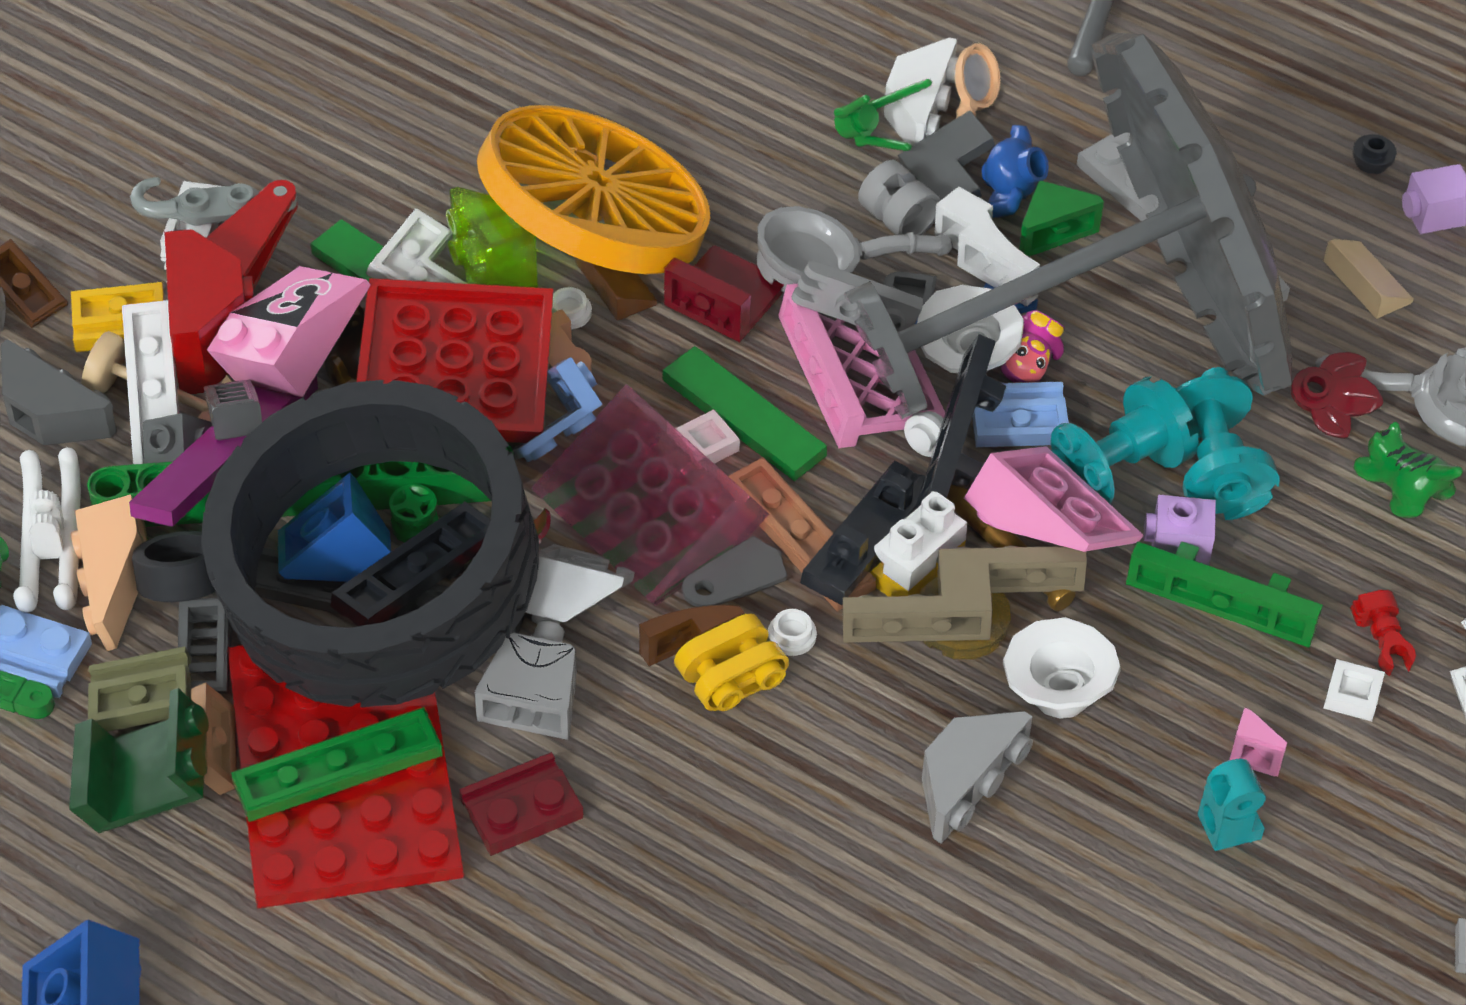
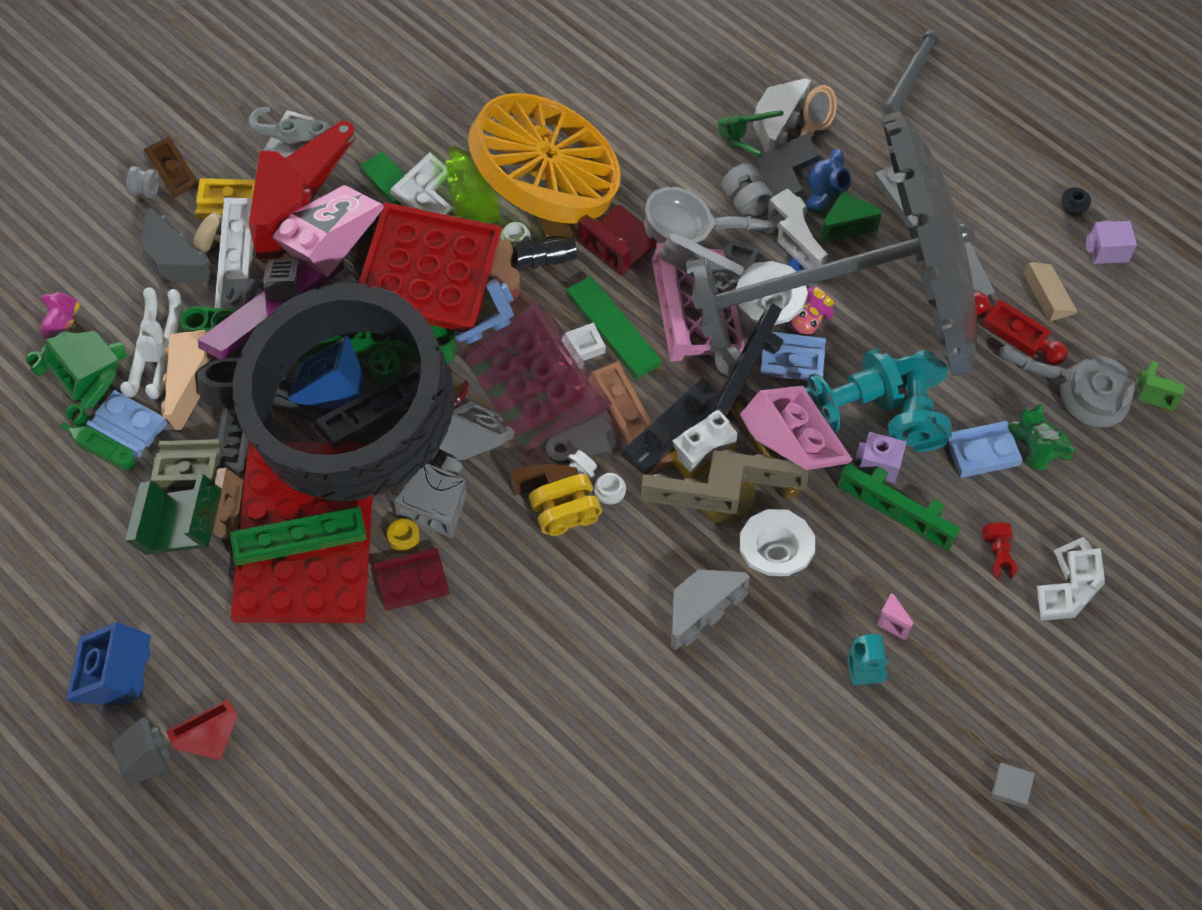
camera: 10 degrees right, 10 degrees up
(494, 744) = (403, 535): none -> yellow tile
(619, 323) = (543, 252): none -> black axle
(745, 597) = (583, 463): none -> white plate
(1326, 501) = (984, 449): none -> light blue plate
(1339, 331) = (1019, 329): none -> red plate
(1342, 396) = (1013, 373): dark red plate -> none
(1354, 690) = (970, 588): white tile -> none

